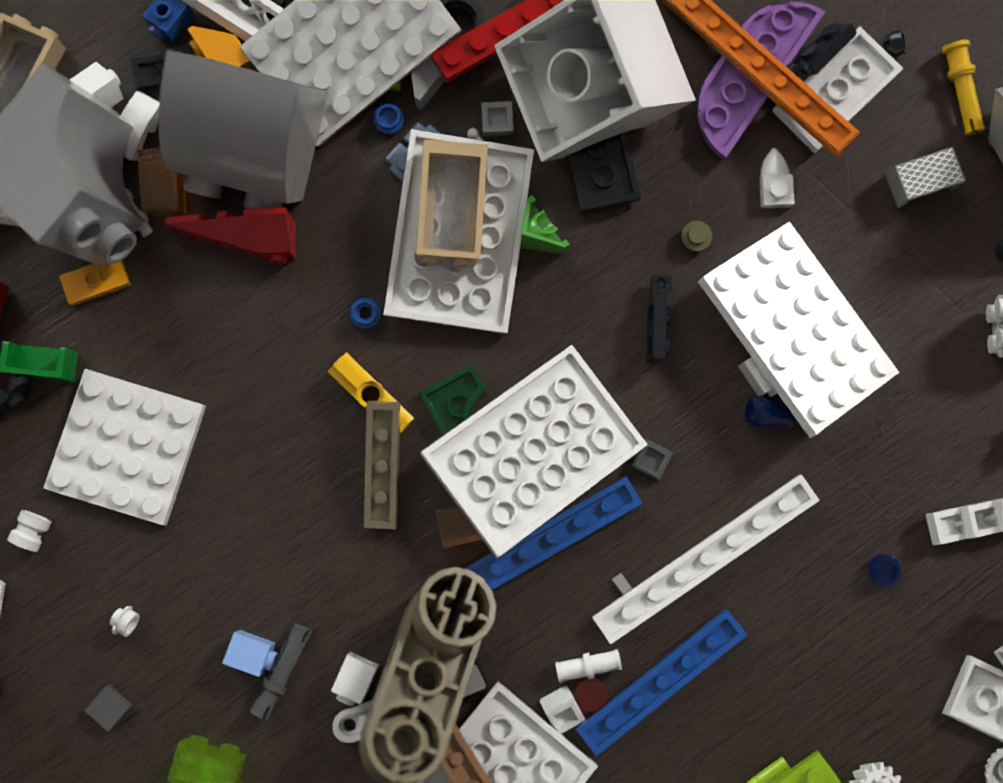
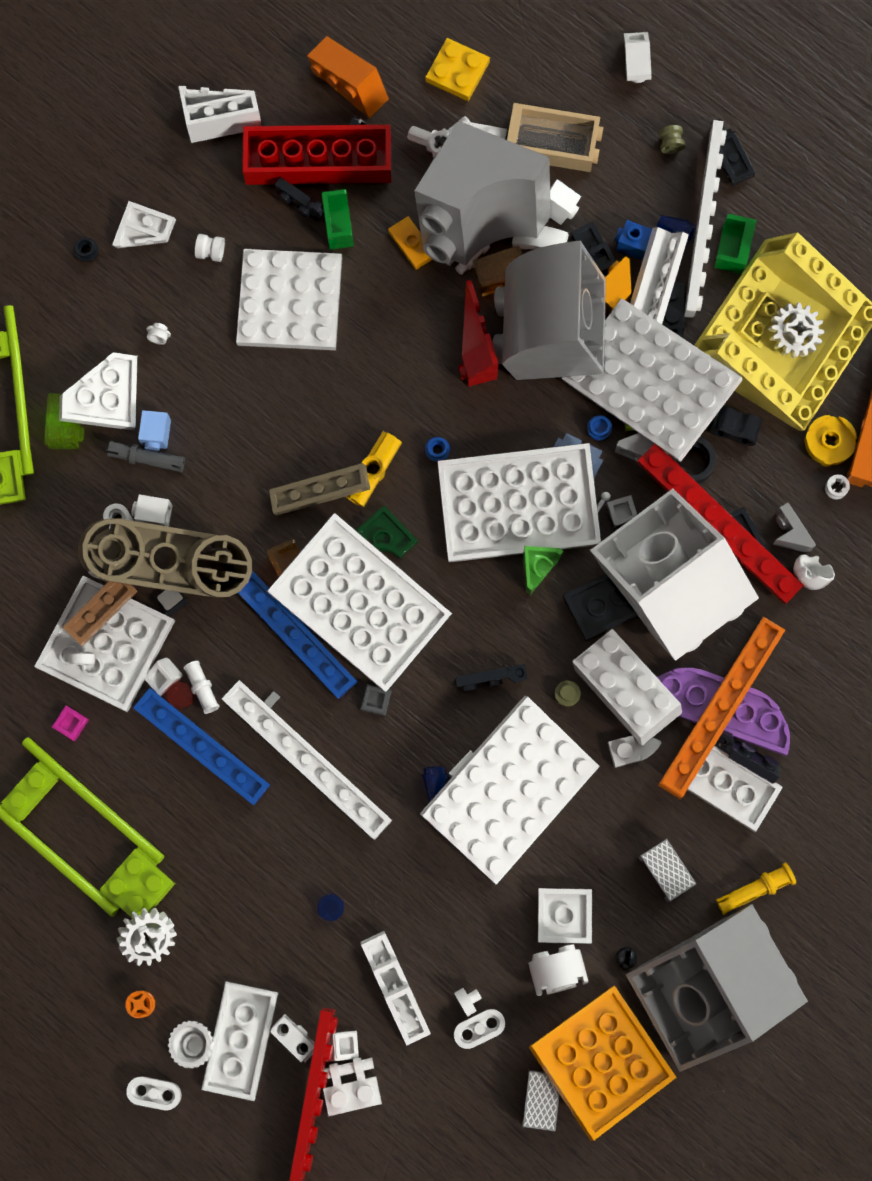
camera: 80 degrees right, 5 degrees down
(108, 708) = (92, 340): dark grey tile -> none
(187, 708) = (104, 395): none -> white plate
(451, 203) = (536, 487): piece -> none
(712, 162) = (627, 687): none -> white brick
(897, 43) = (778, 823): black hinge -> none
(951, 304) = (564, 915): none -> white plate

